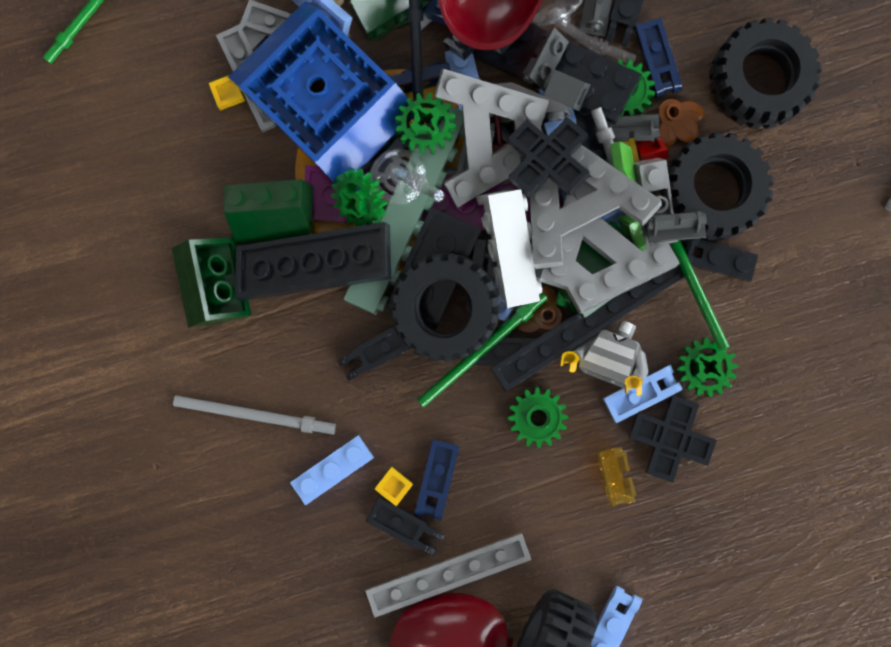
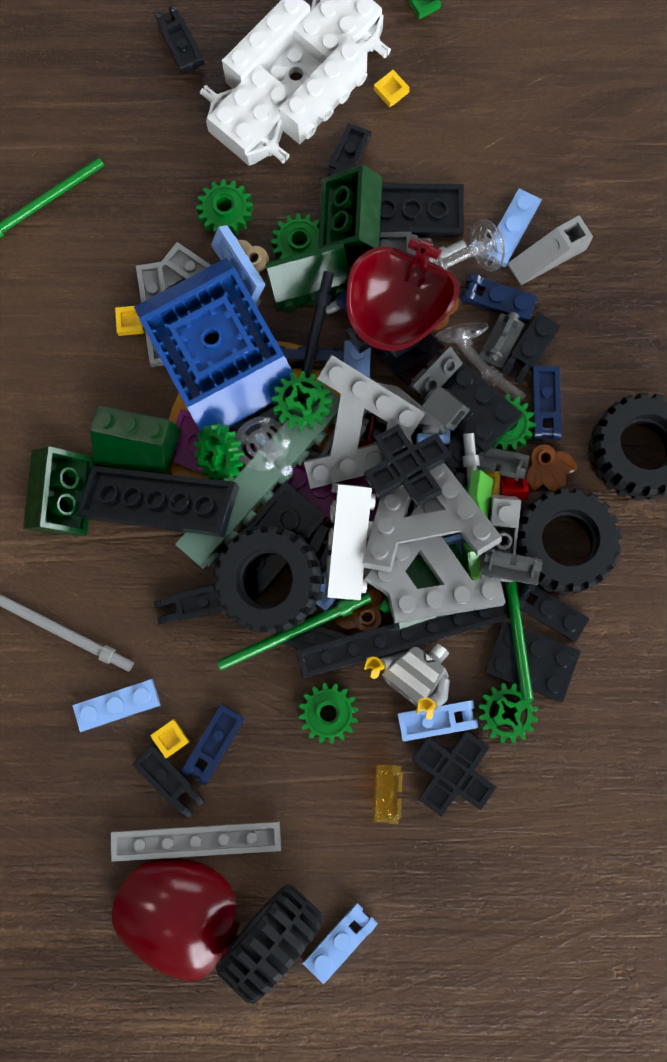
camera: 20 degrees right, 5 degrees down
(732, 305) = (549, 662): none -> black plate

